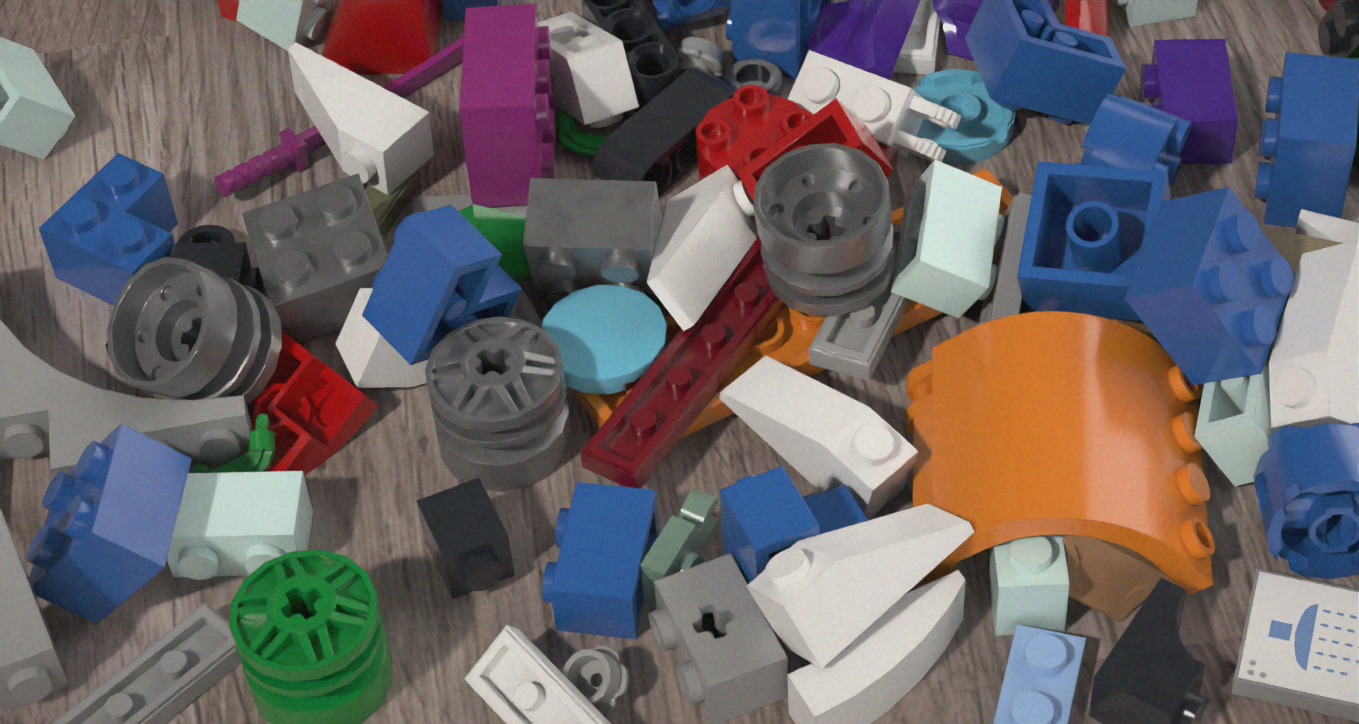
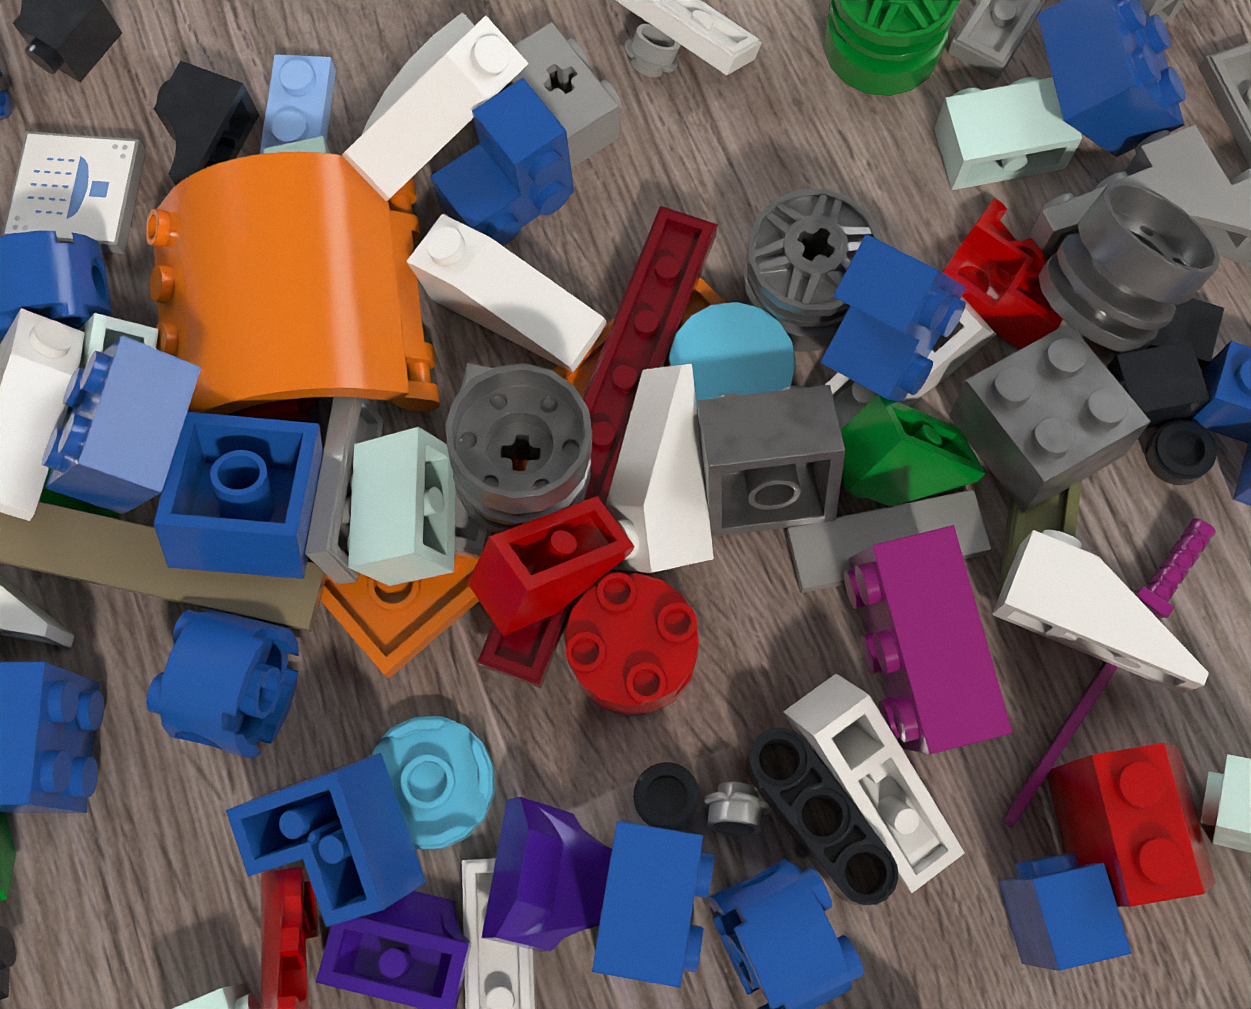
camera: 170 degrees right, 25 degrees up
(259, 455) = (1021, 206): green piece -> none
(466, 538) = (799, 149): black brick -> none
(574, 141) = (818, 671): green piece -> none
(598, 569) = (673, 150): blue brick -> none
(661, 136) = (736, 682): black beam -> none
(679, 542) = (611, 160): sand green plate -> none
(884, 106) = (513, 725): white hinge -> none
(1195, 84) = (163, 824): dark purple brick -> none

